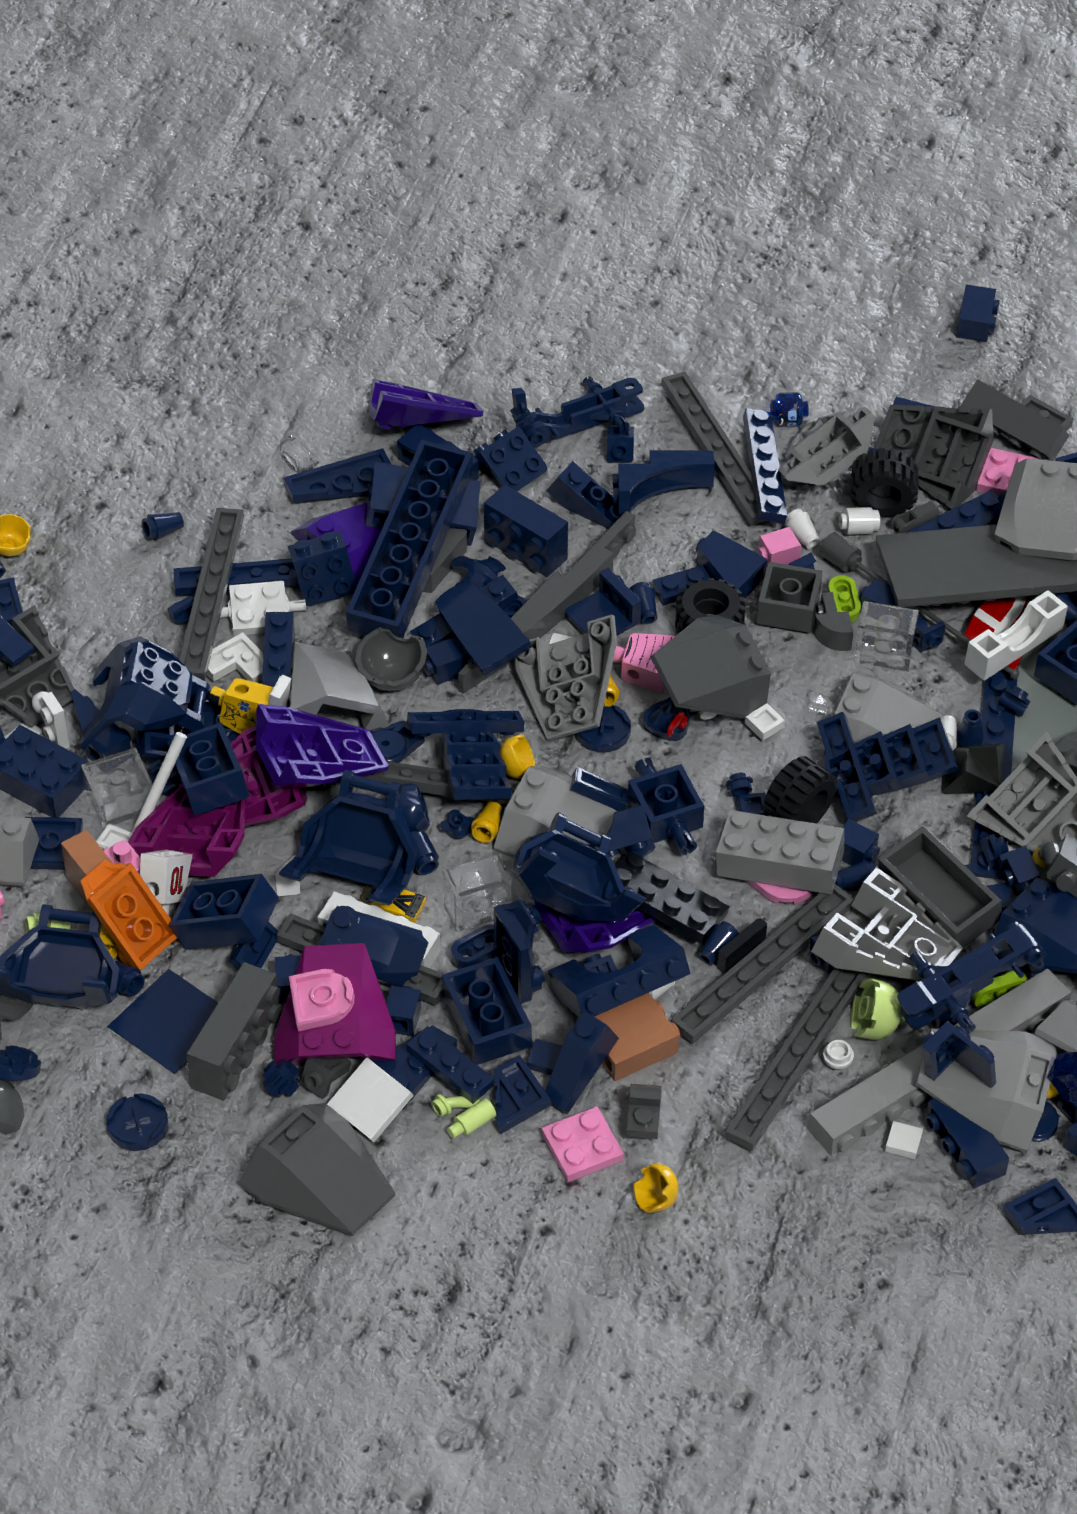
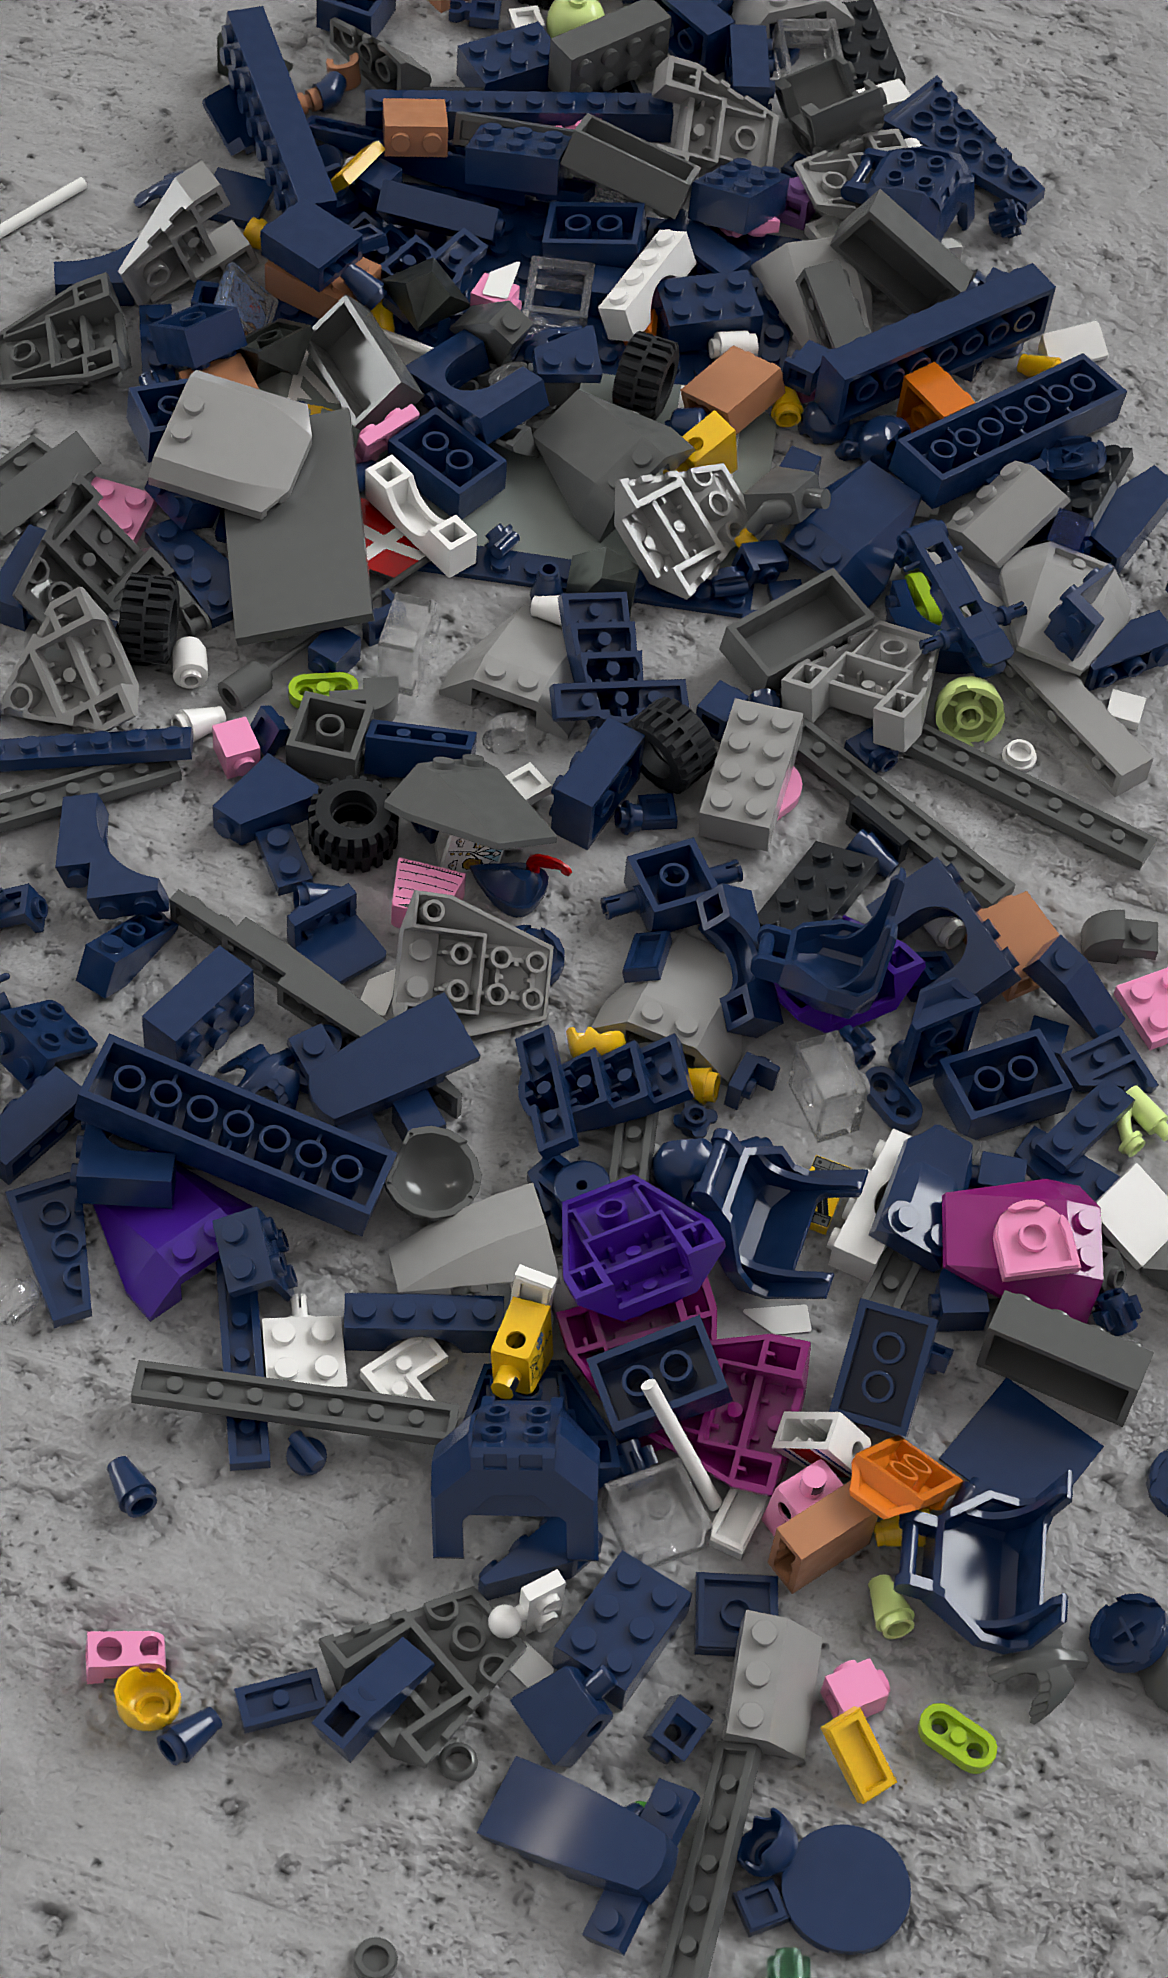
camera: 95 degrees left, 5 degrees up
(42, 525) = (115, 1652): none -> bright pink leg
(486, 846) = (751, 1072): none -> dark blue bracket
(754, 748) = (596, 782): none -> dark blue brick
(783, 648) = (398, 747): none -> dark blue brick

